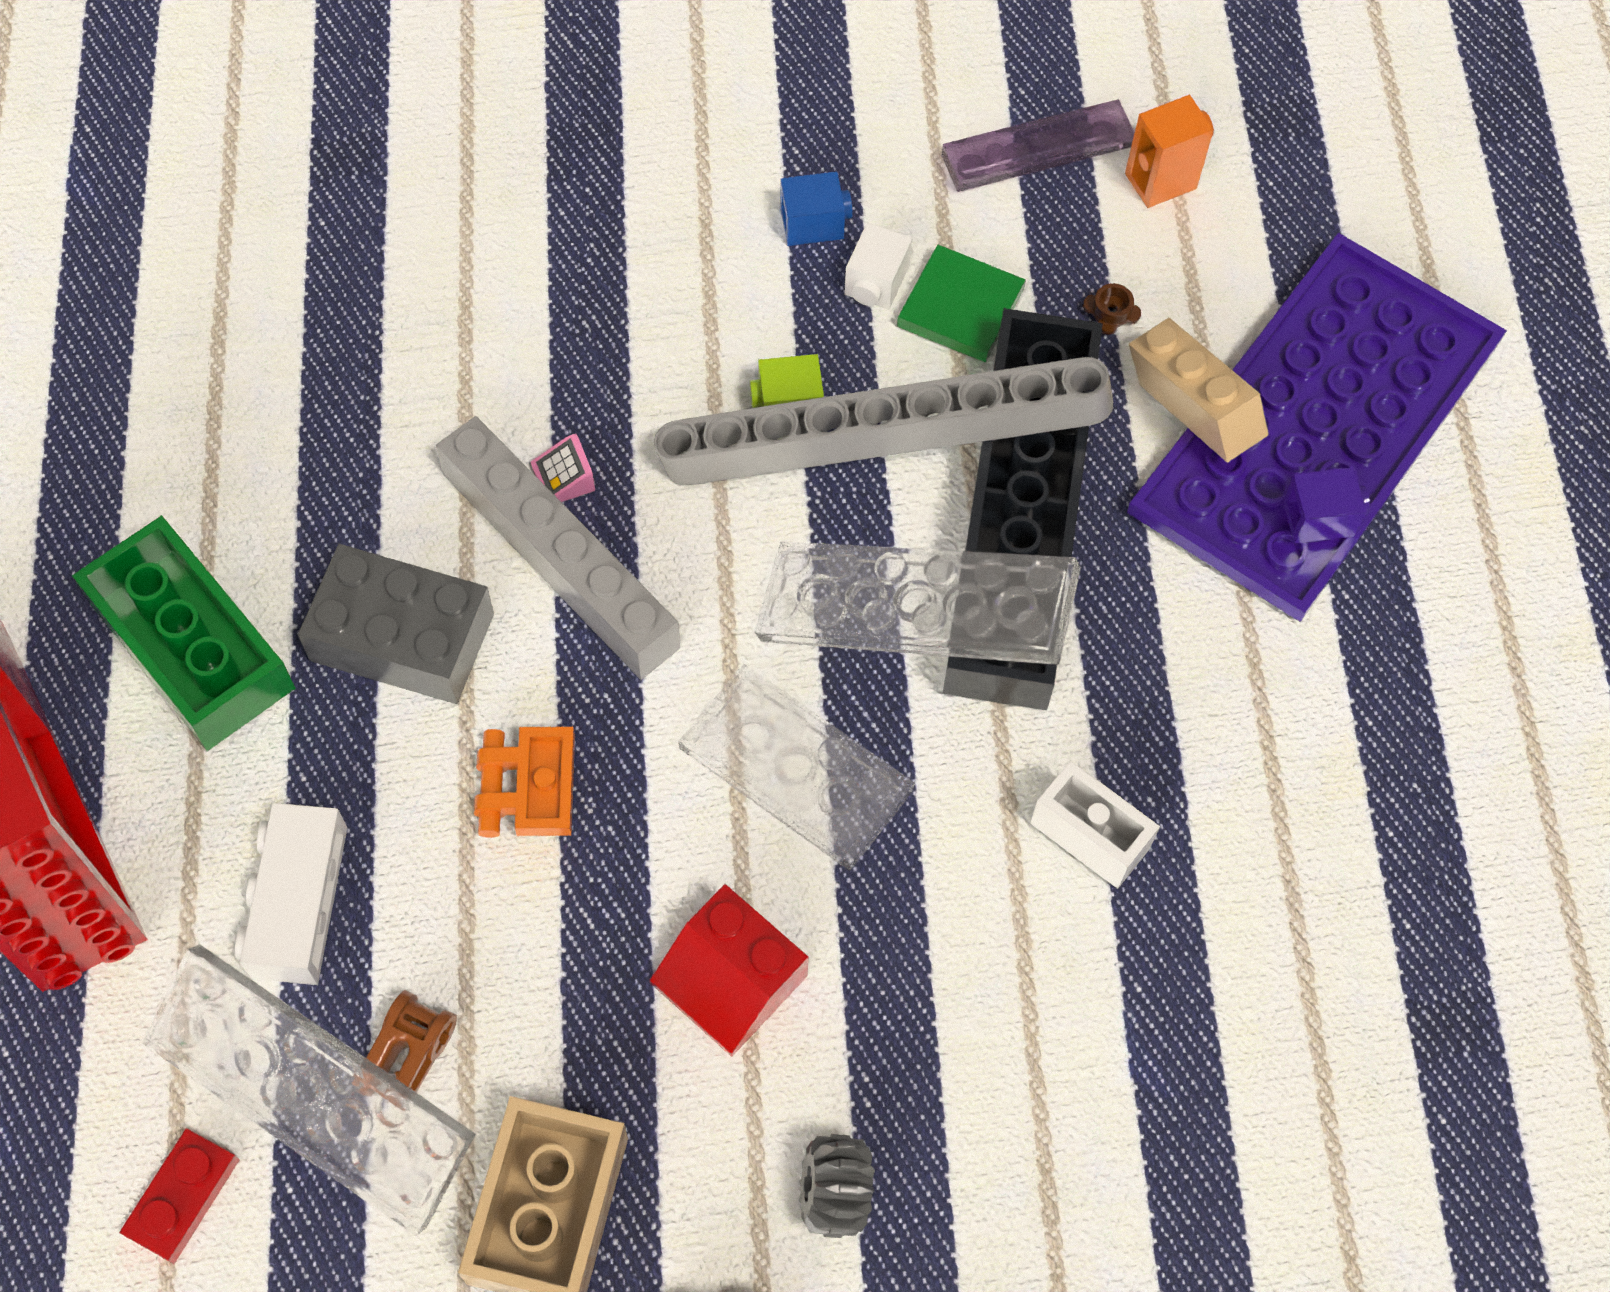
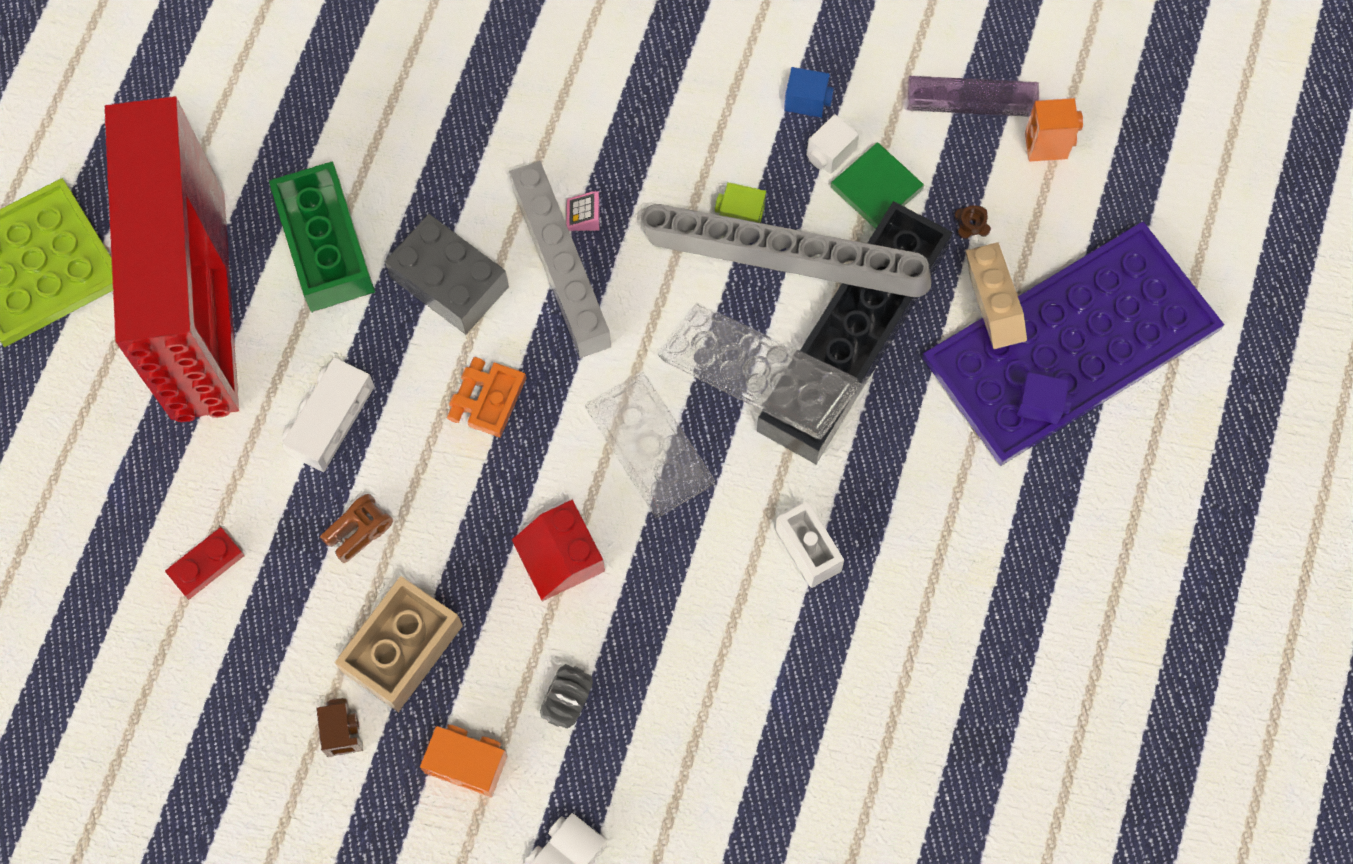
camera: 25 degrees right, 5 degrees up
(308, 1089) = (293, 530): clear plate -> none

